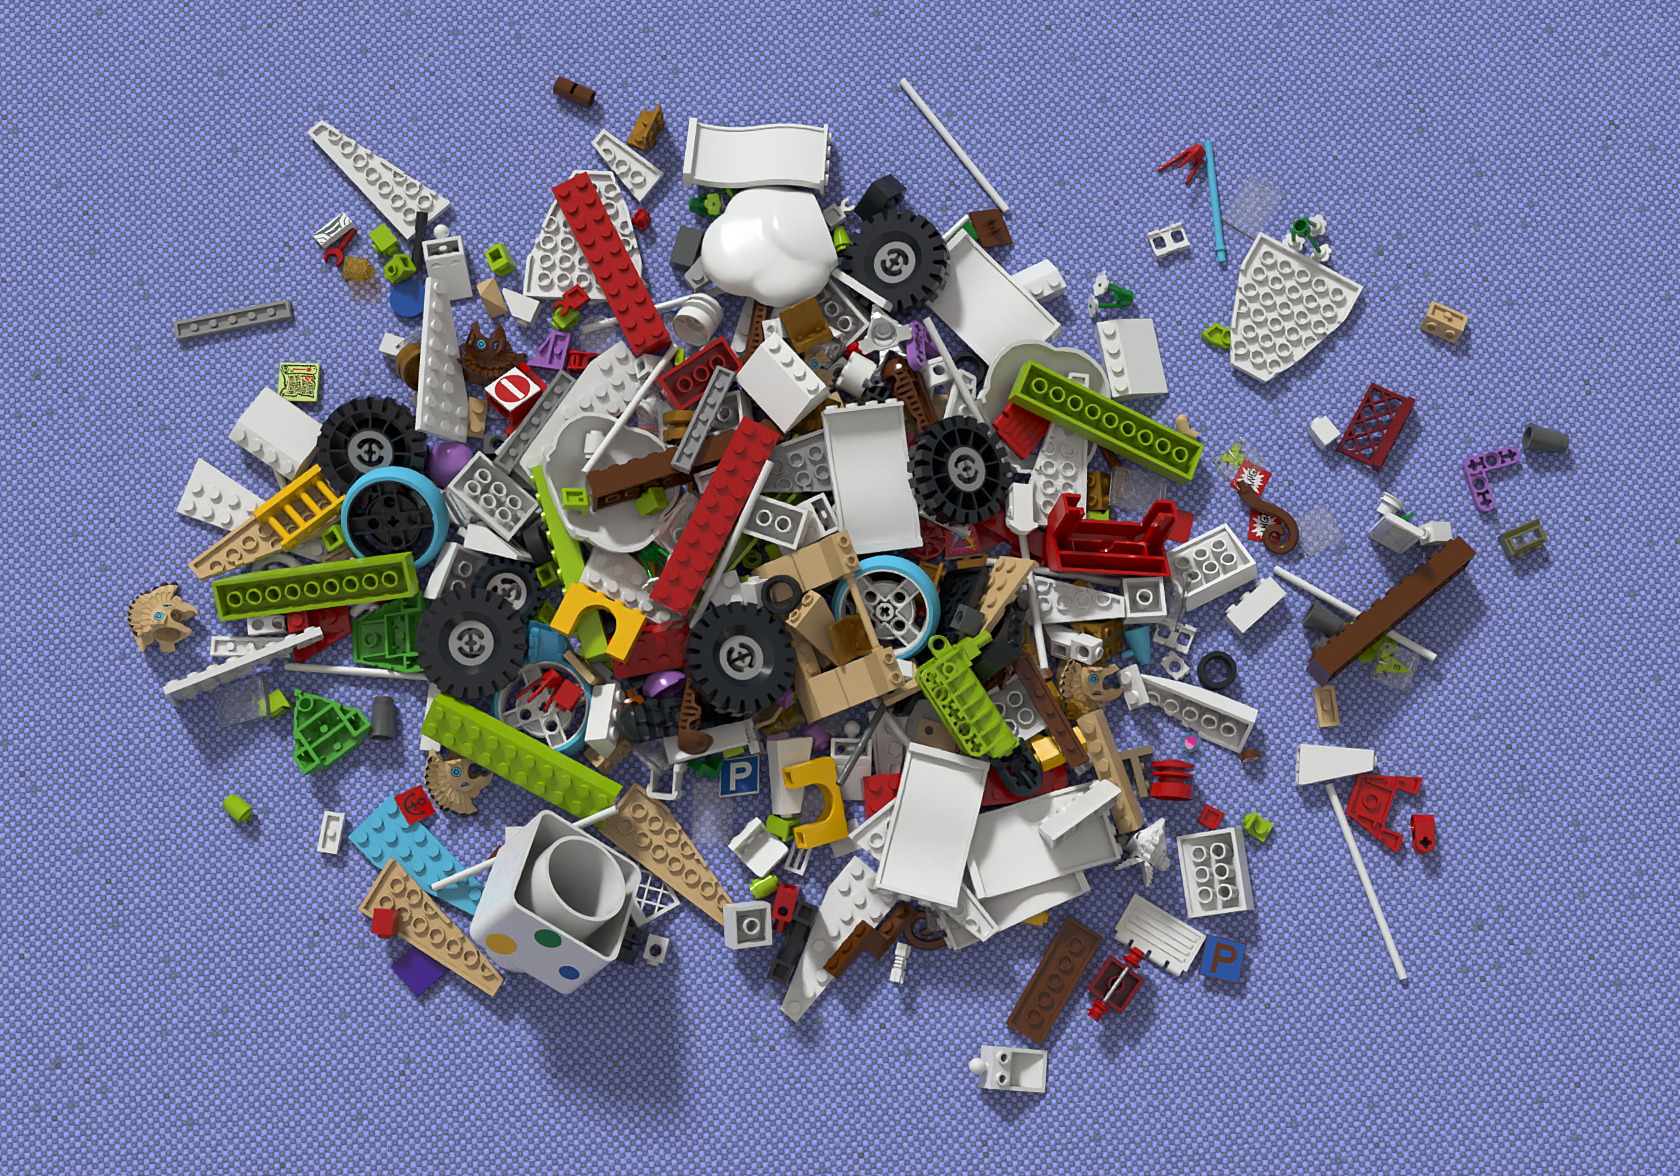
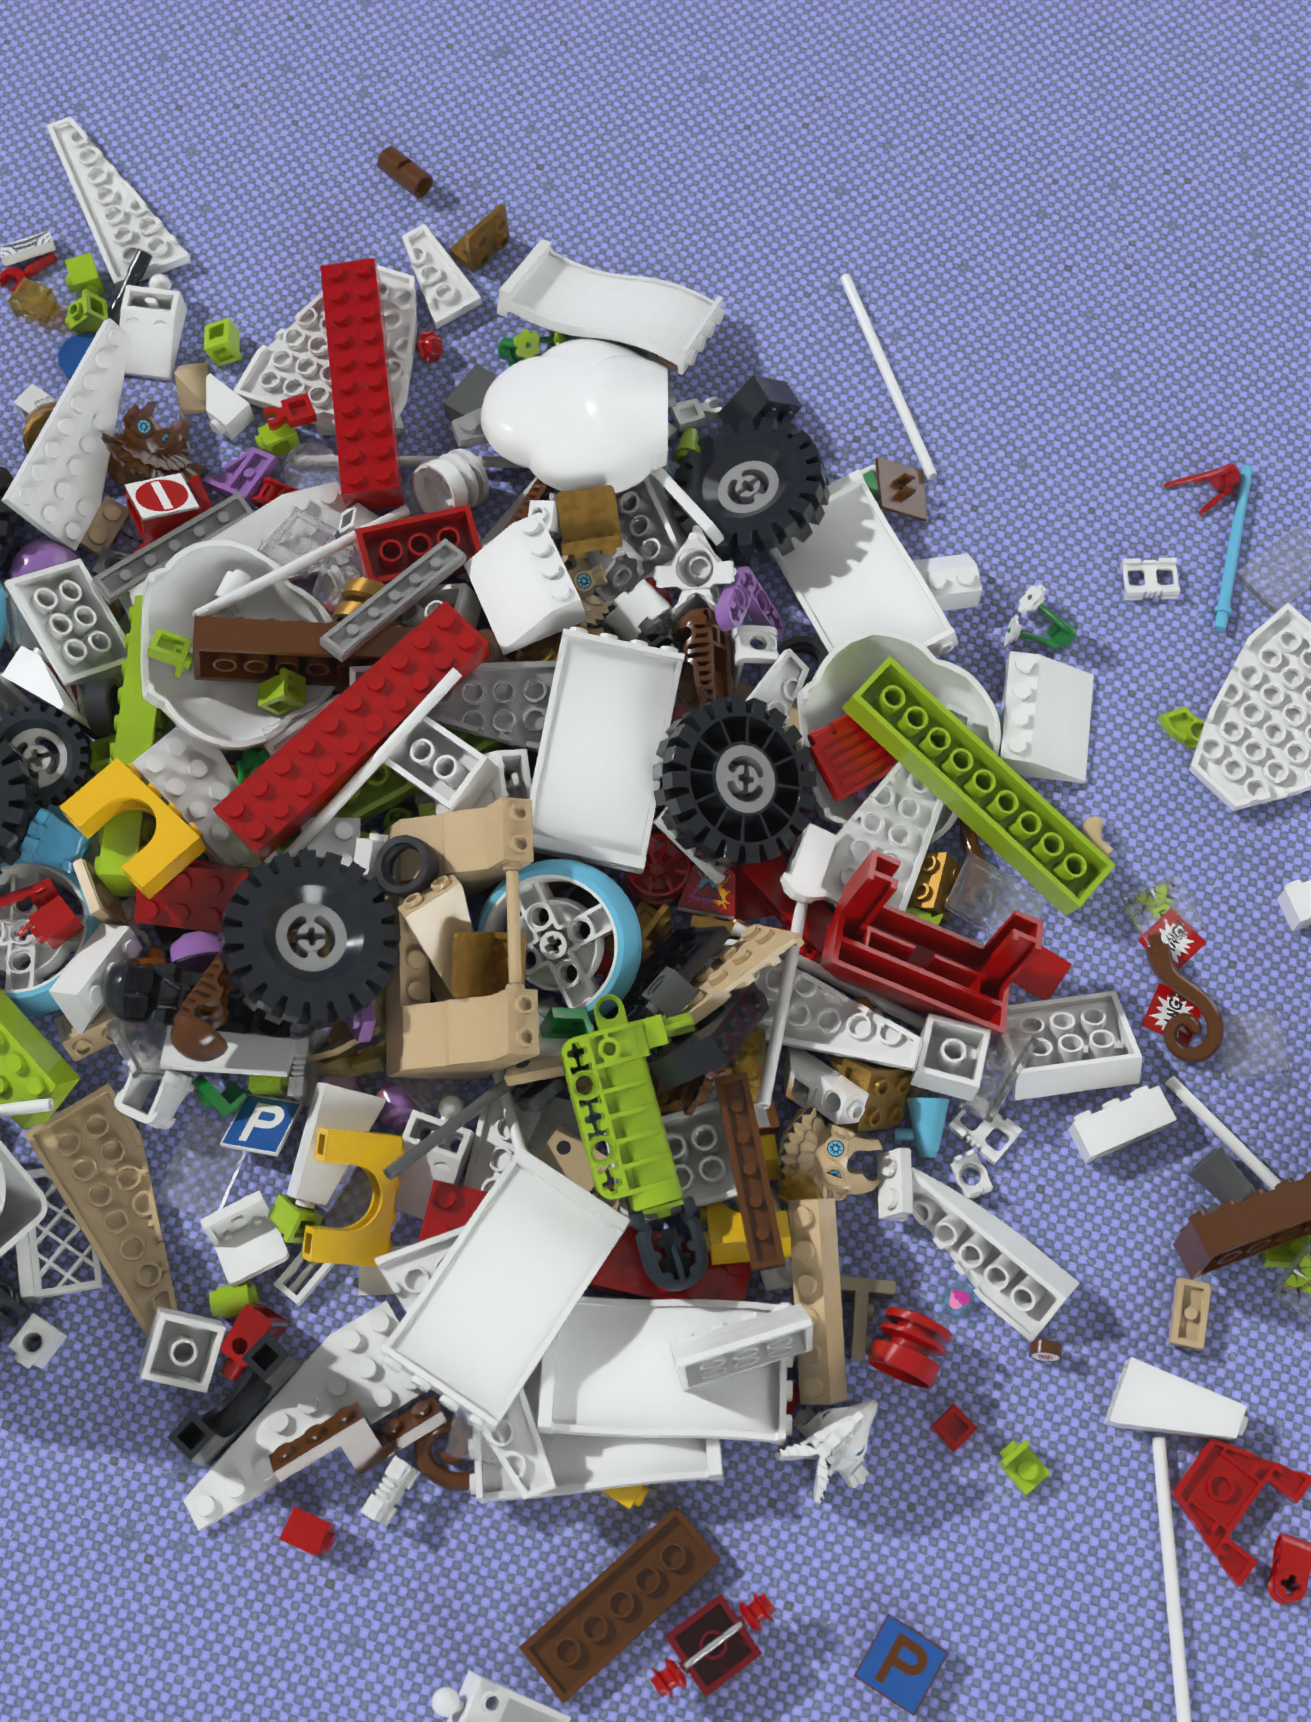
camera: 20 degrees right, 10 degrees down
(616, 391) = (298, 536): none -> clear tile
(861, 1002) = (308, 1532): none -> red brick
(911, 657) = (566, 1024): none -> green bracket
(956, 376) = (780, 658): white piece -> none
(1159, 933) = (814, 1587): white hinge -> none
(1215, 872) = (933, 1518): white slope -> none
(1231, 673) = (1044, 1180): black tyre -> none

